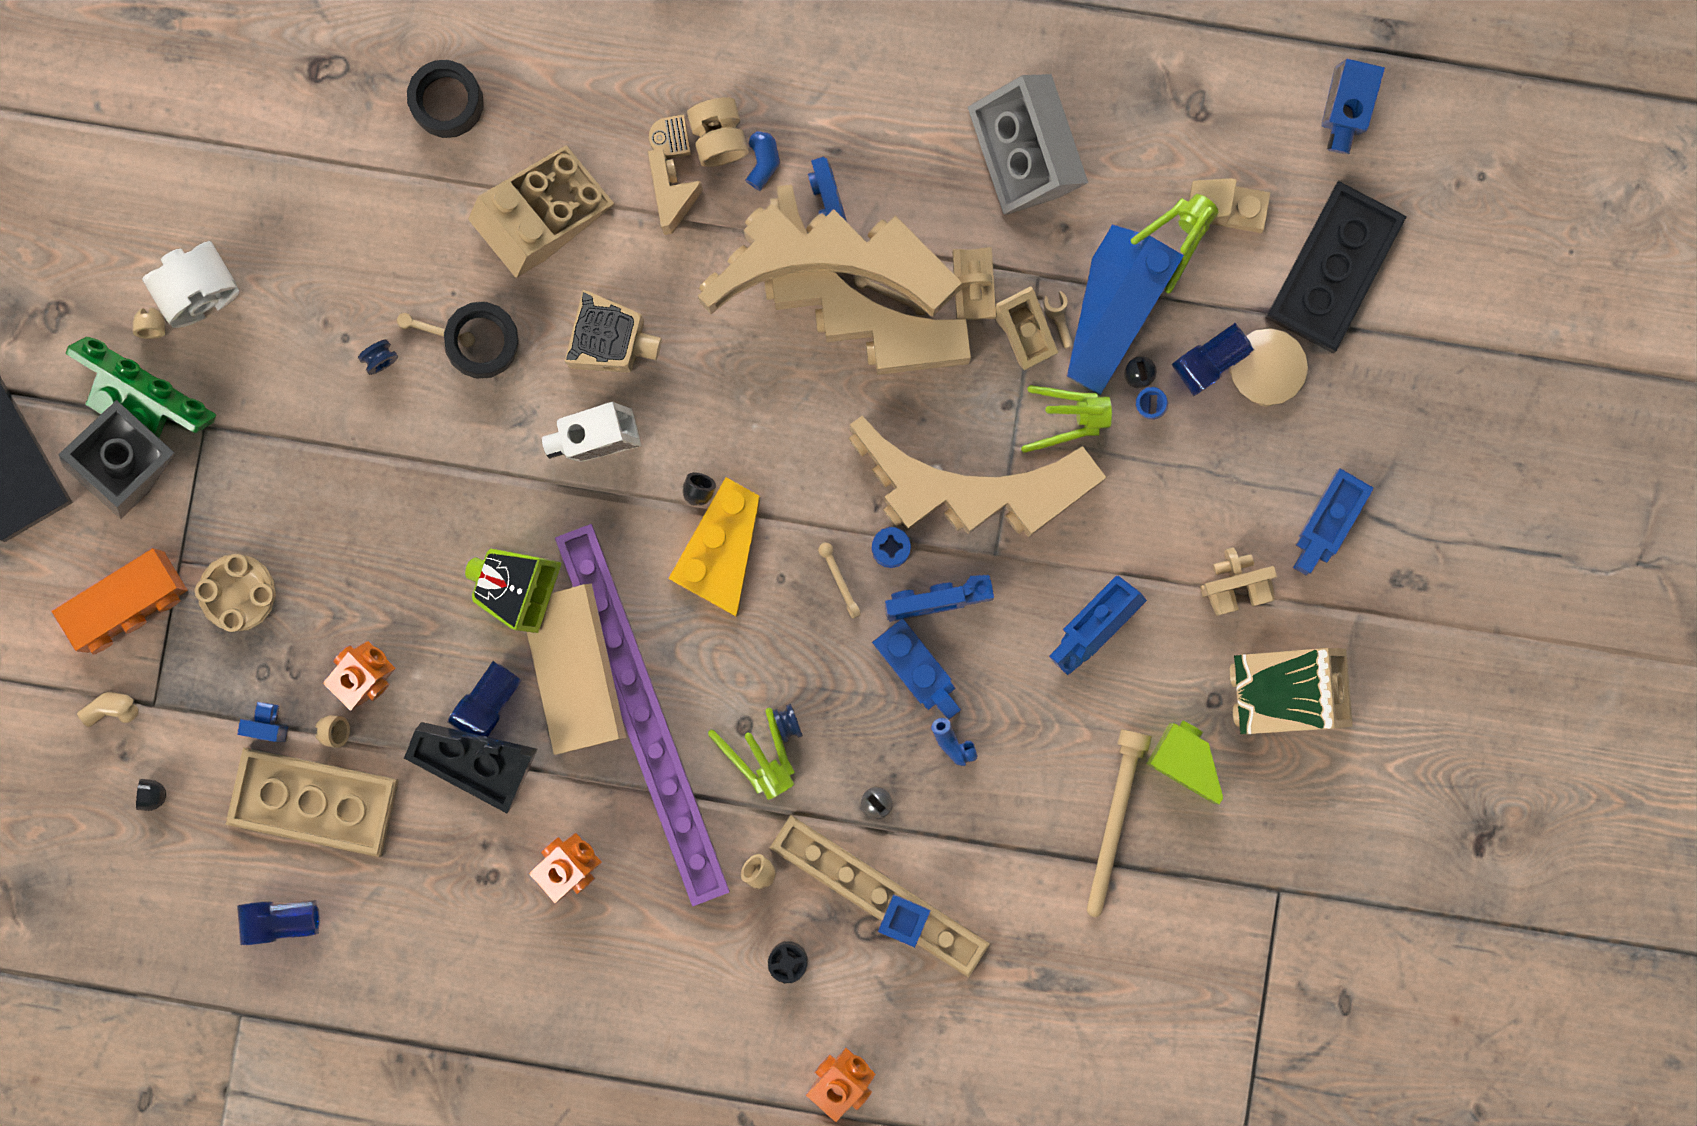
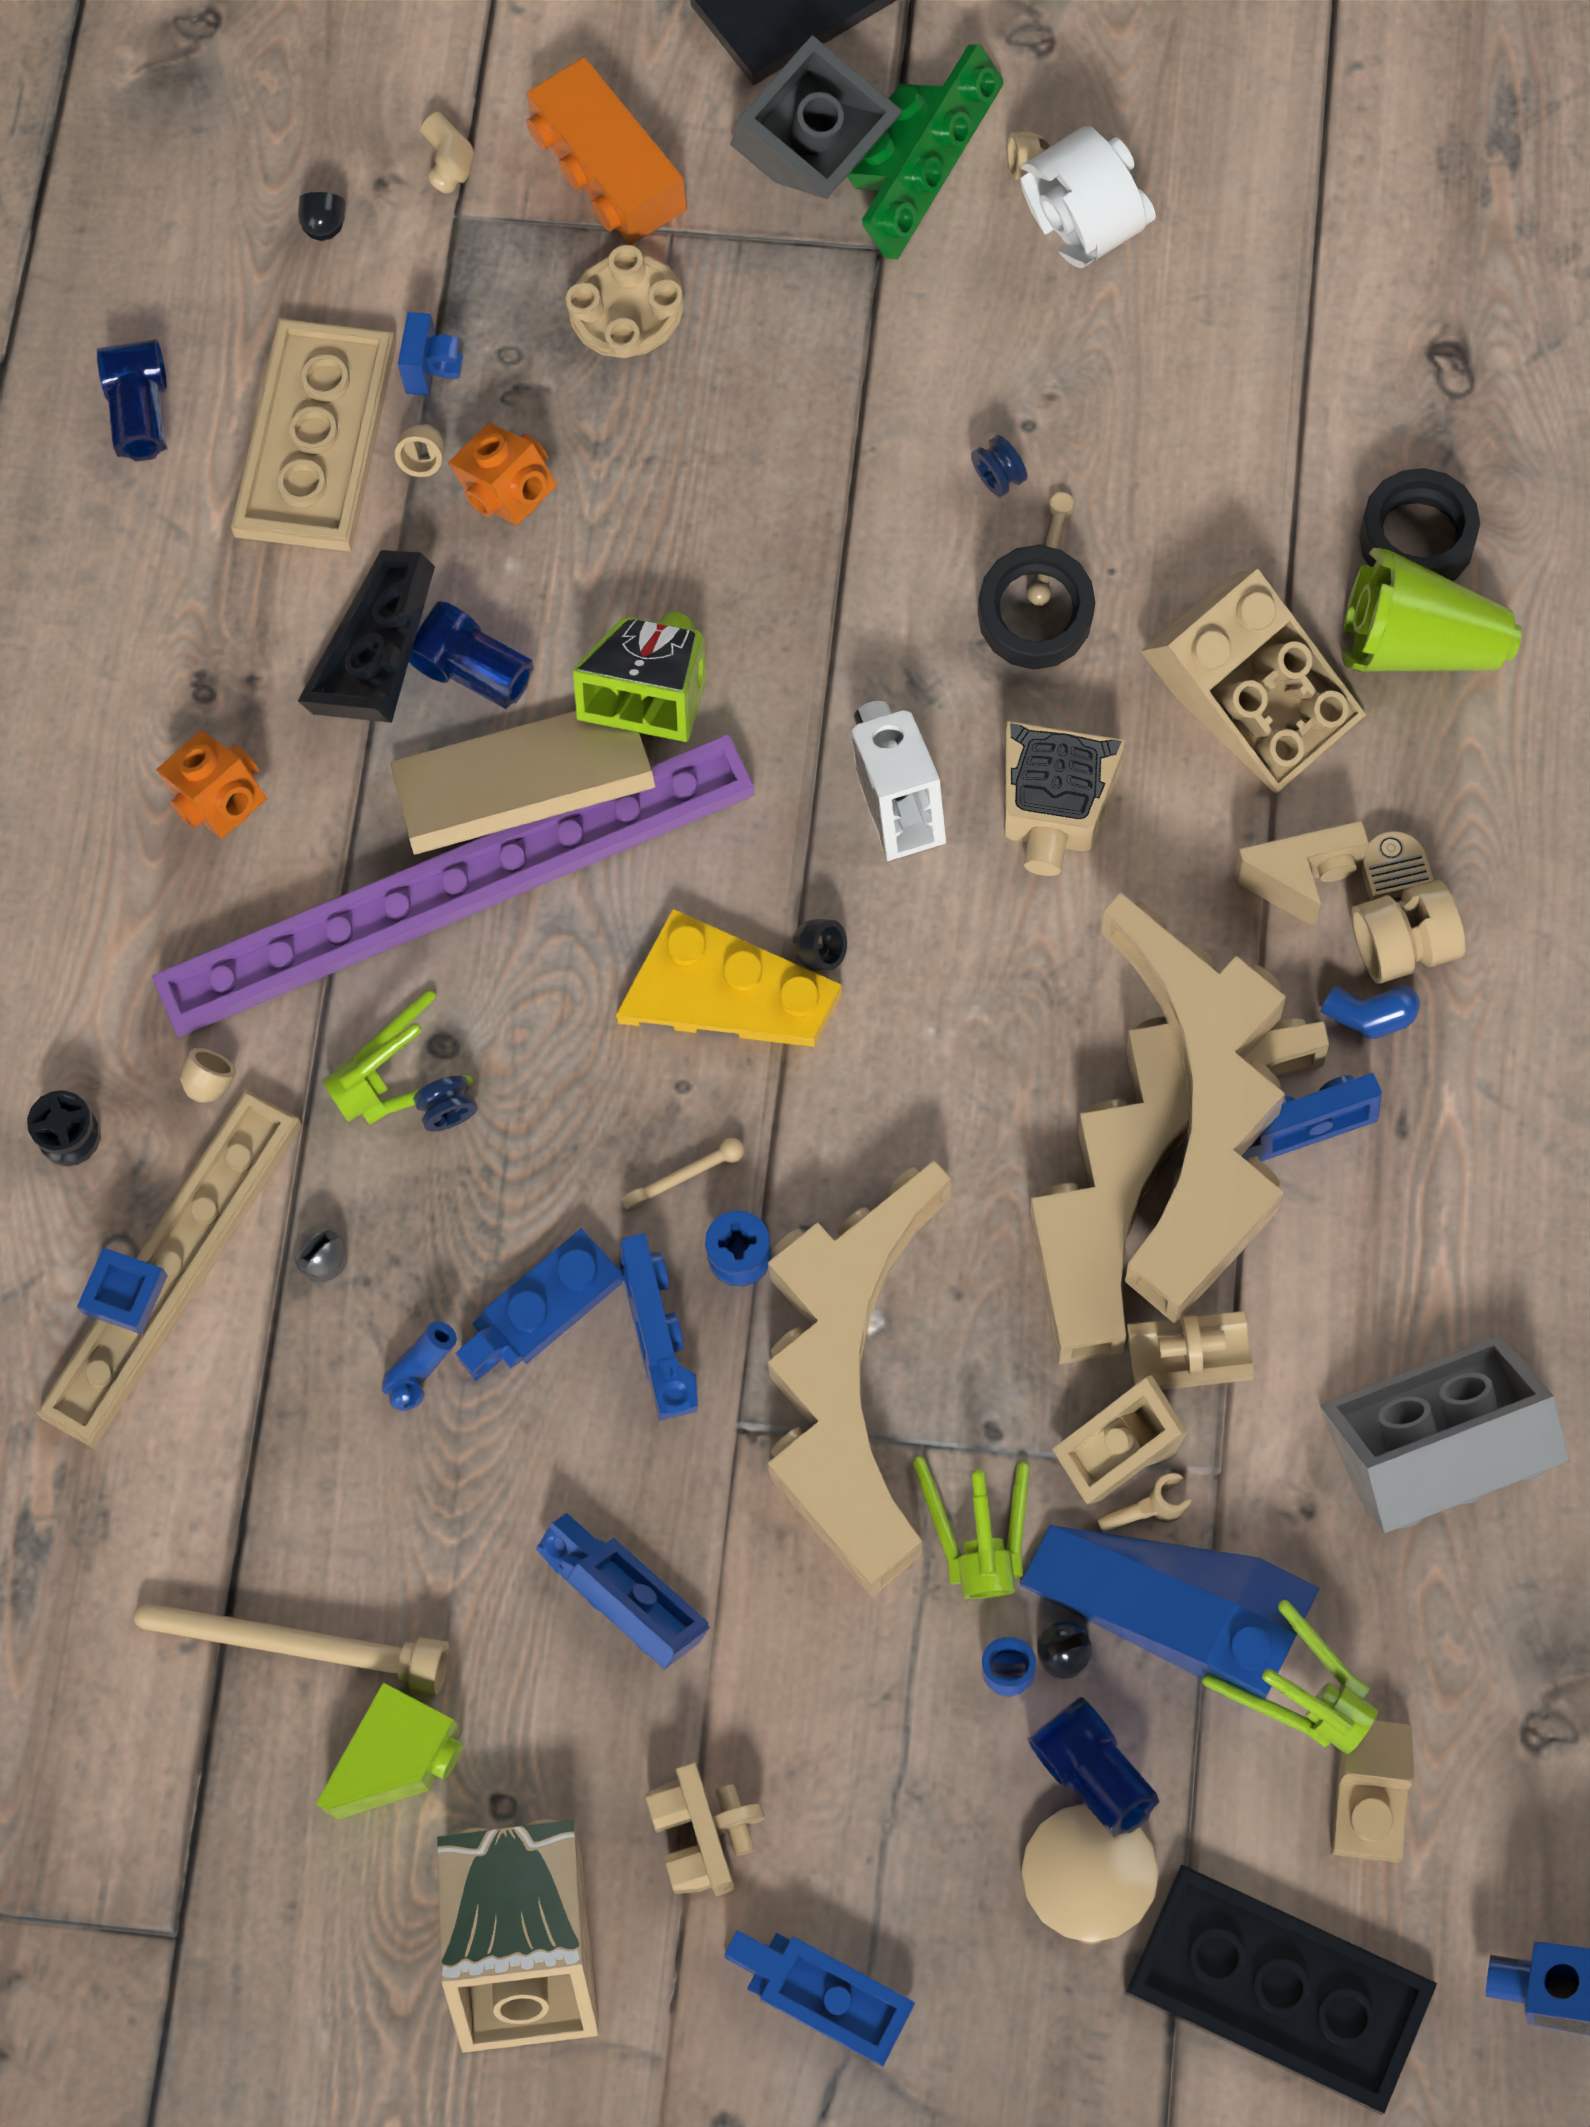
camera: 90 degrees right, 15 degrees down
(513, 104) = (1423, 621): none -> lime cone

